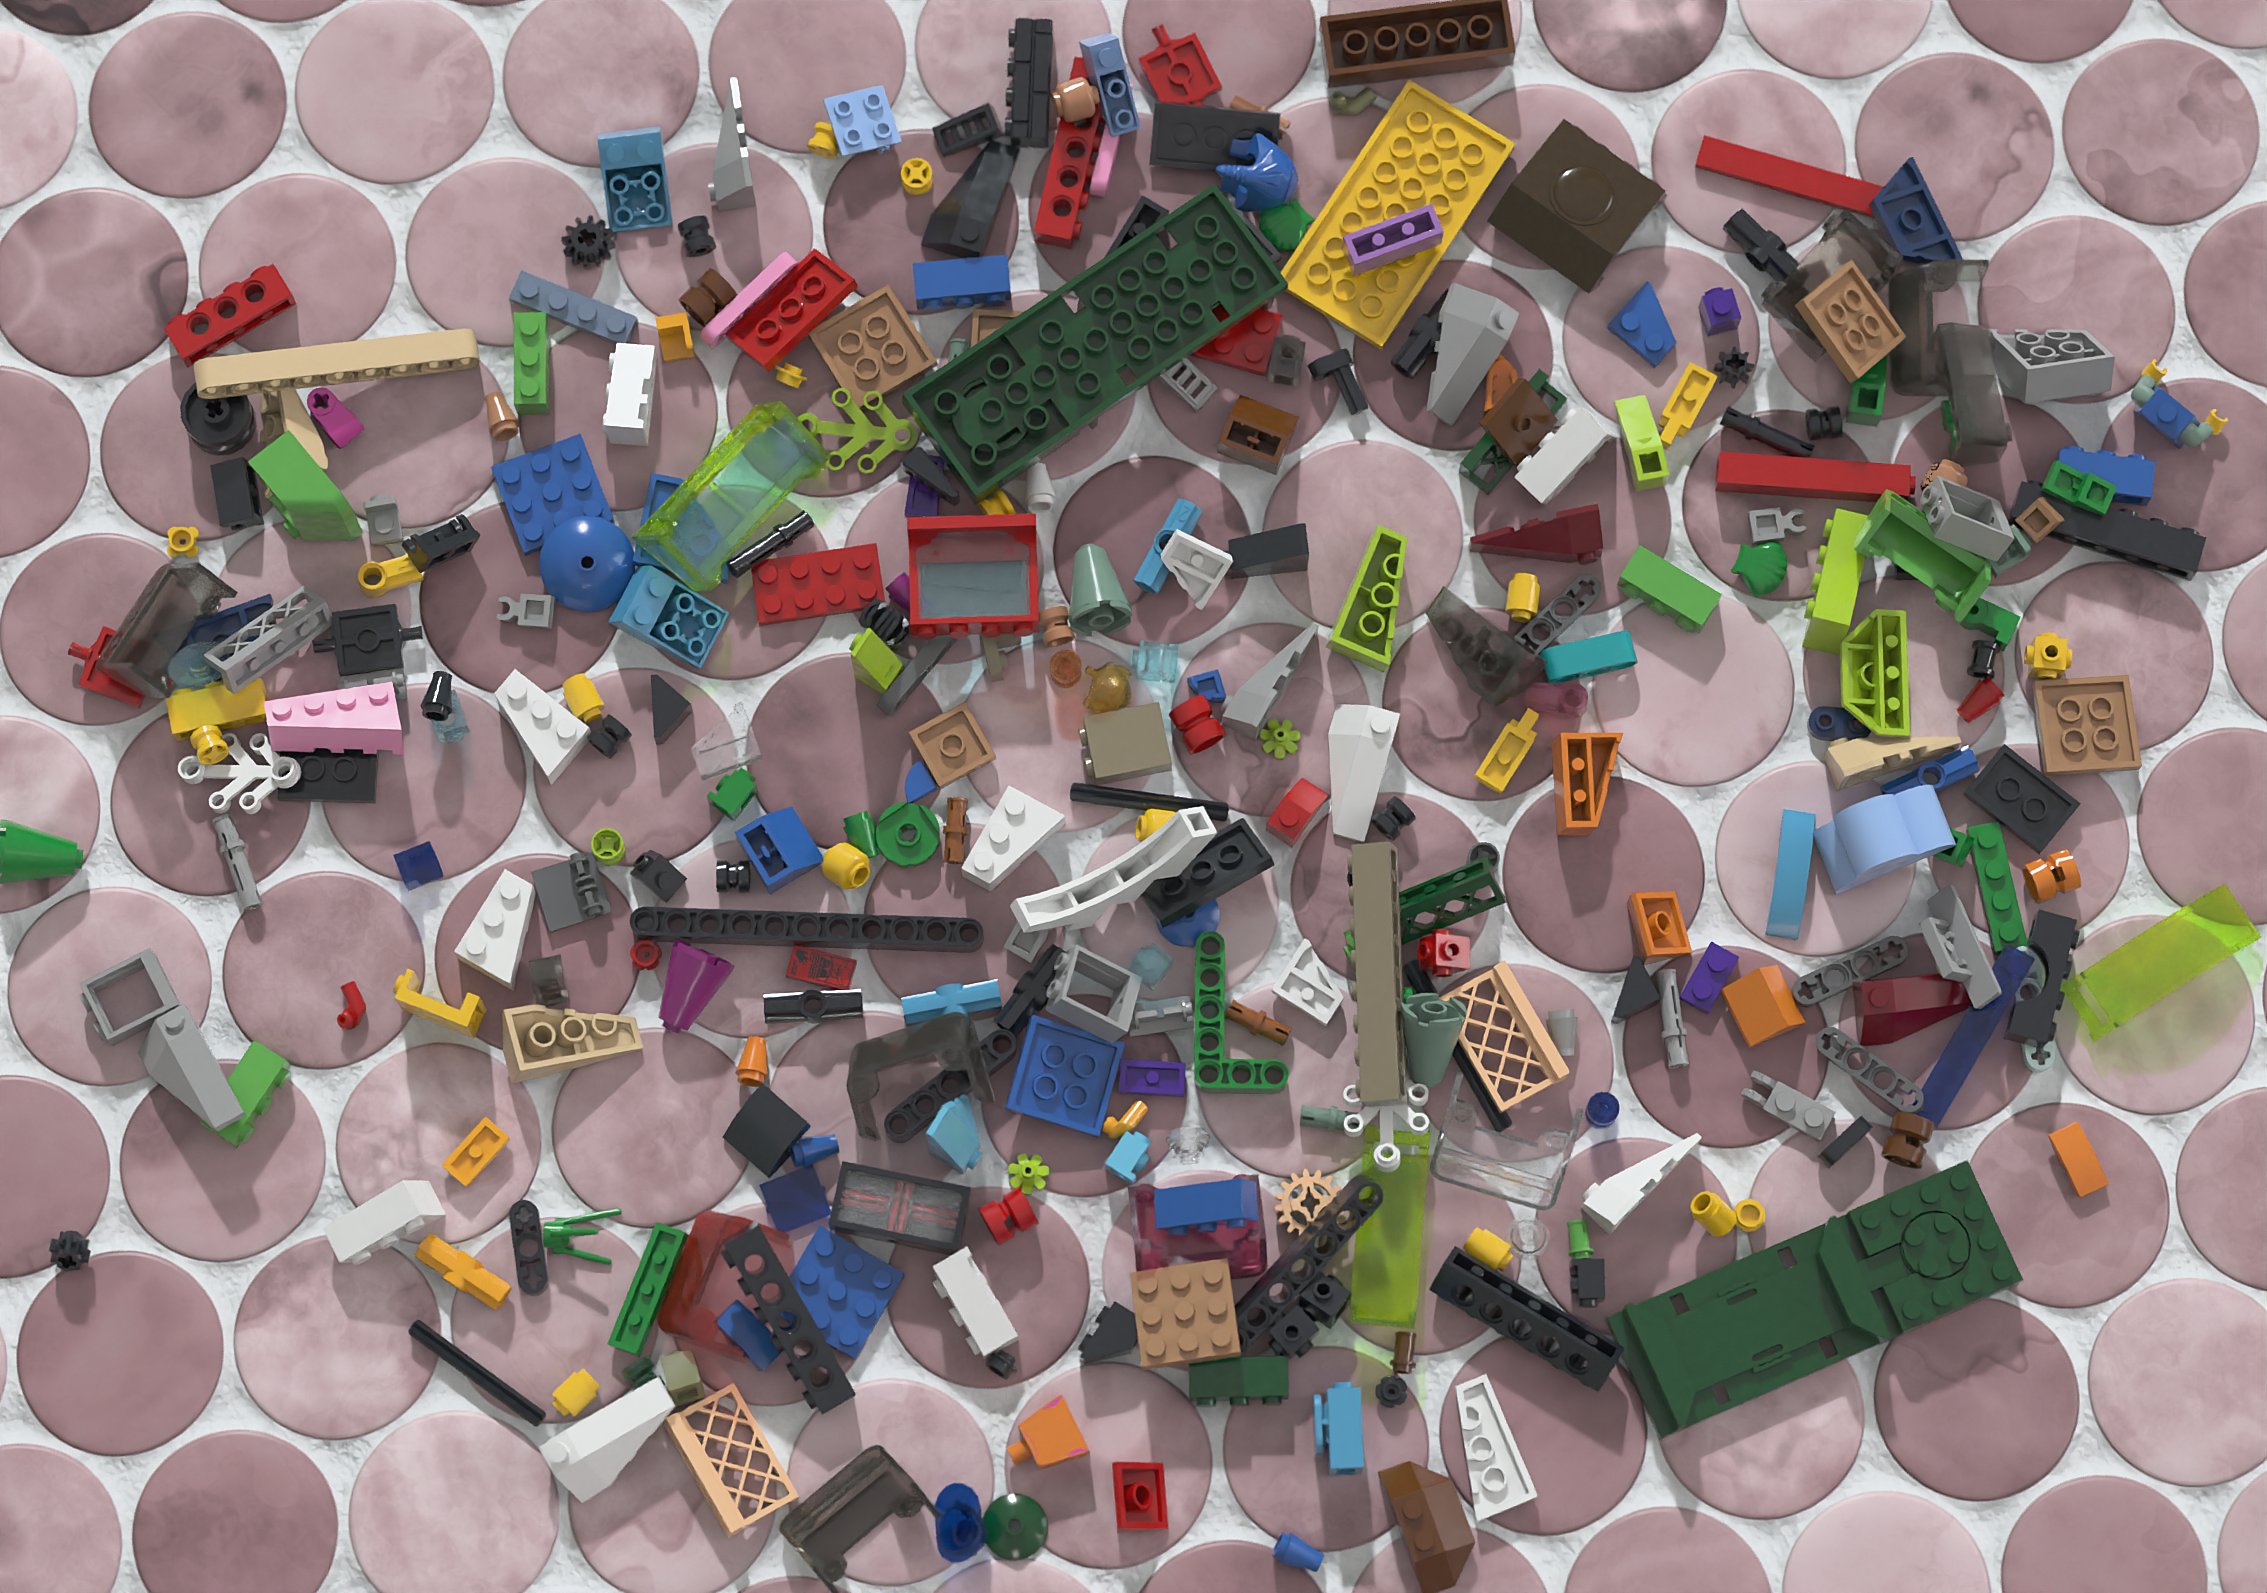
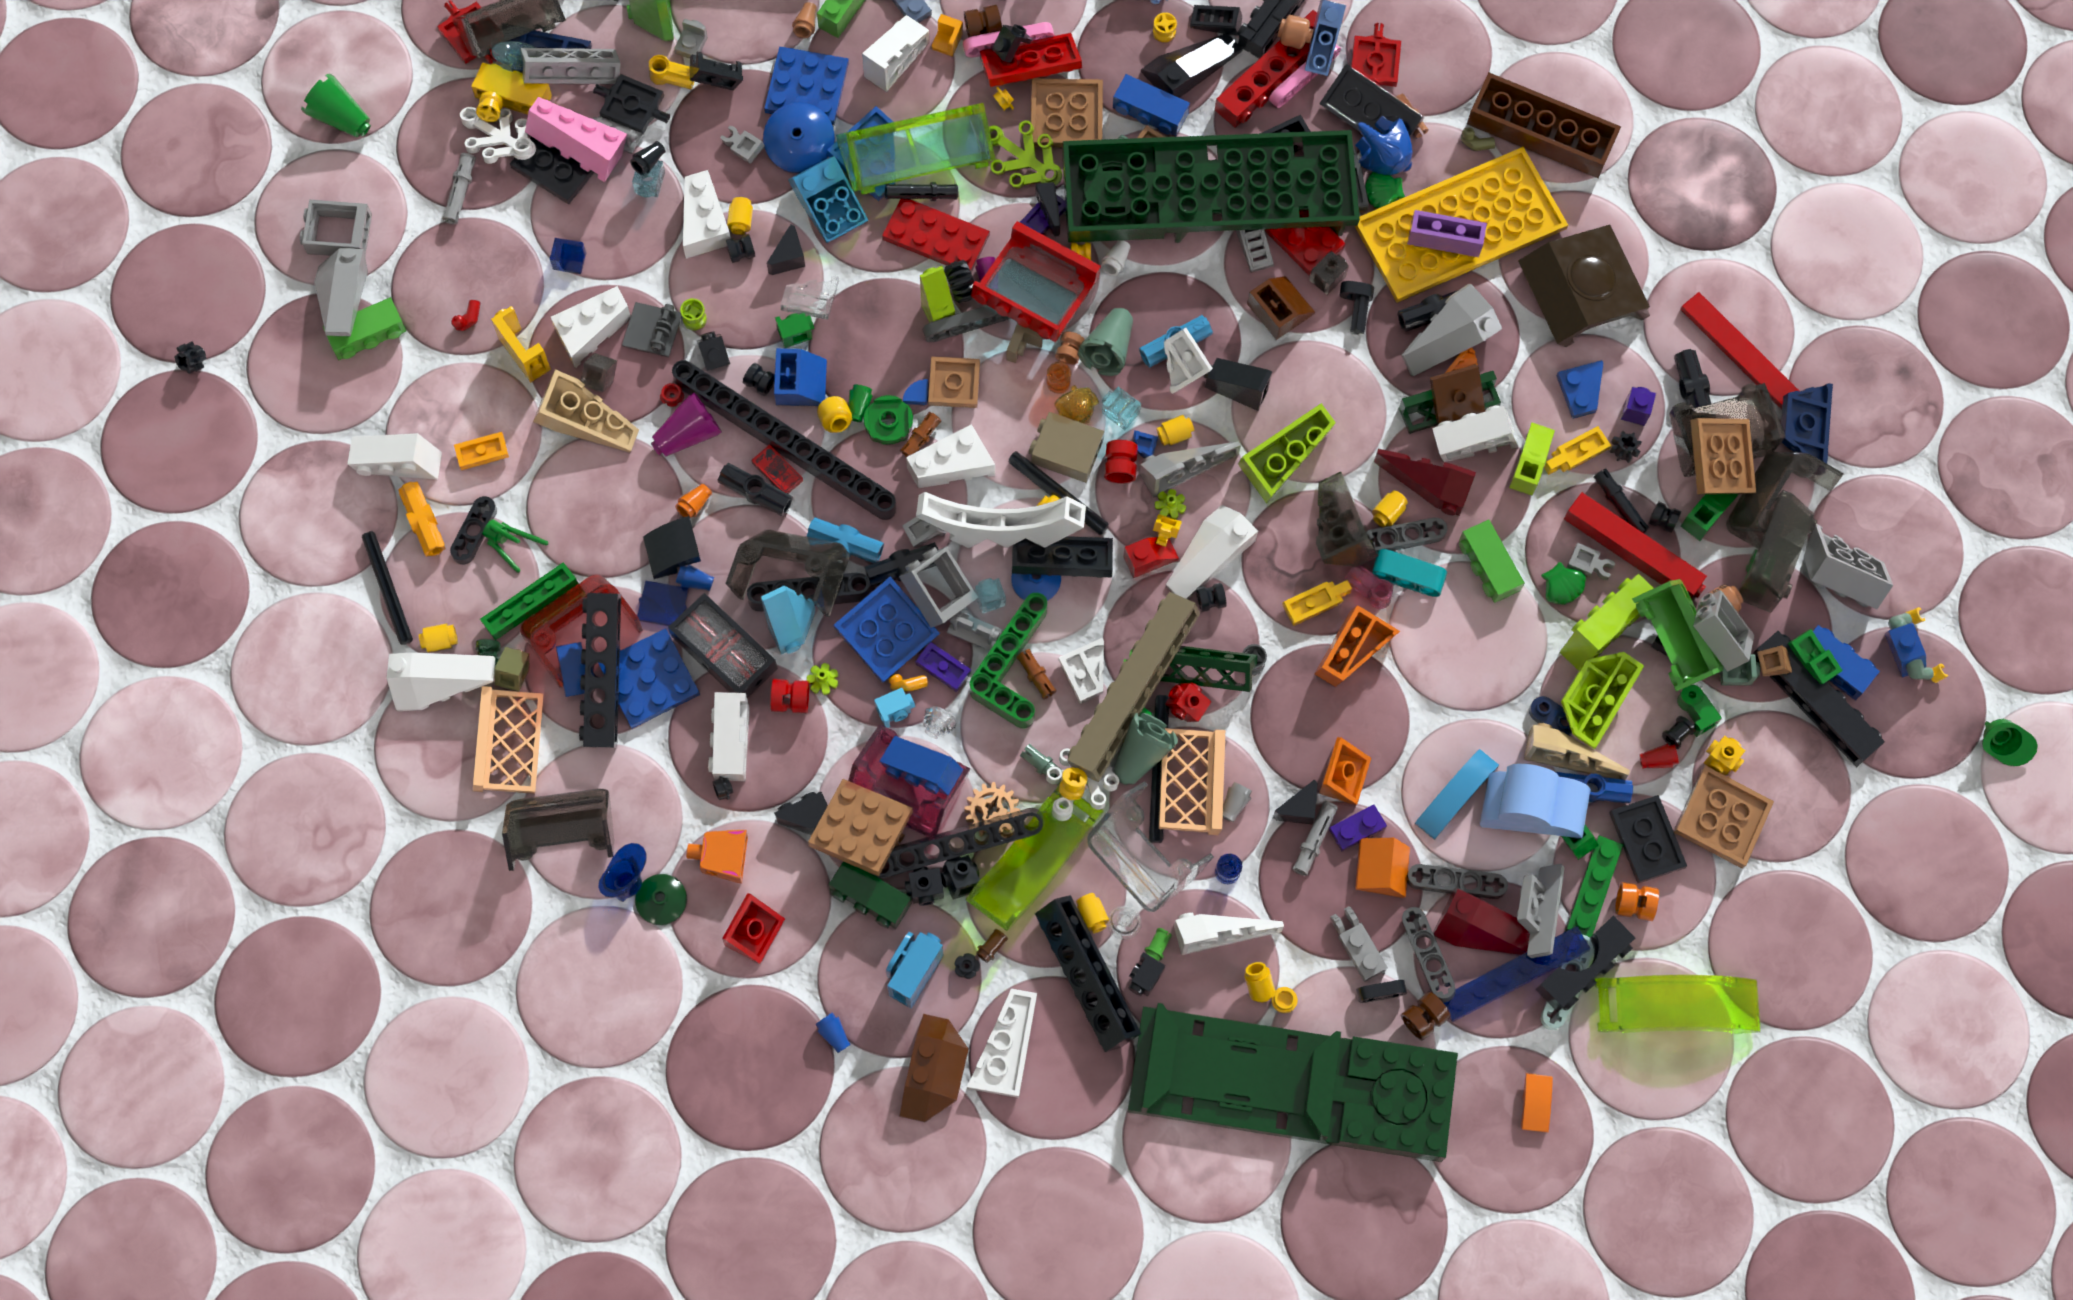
camera: 30 degrees right, 5 degrees down
(757, 305) = (1009, 40): none -> black bracket
(1233, 651) = (1175, 430): none -> yellow brick
(1296, 770) = (1166, 528): none -> yellow plate
(1388, 1129) = (1073, 783): none -> yellow wheel

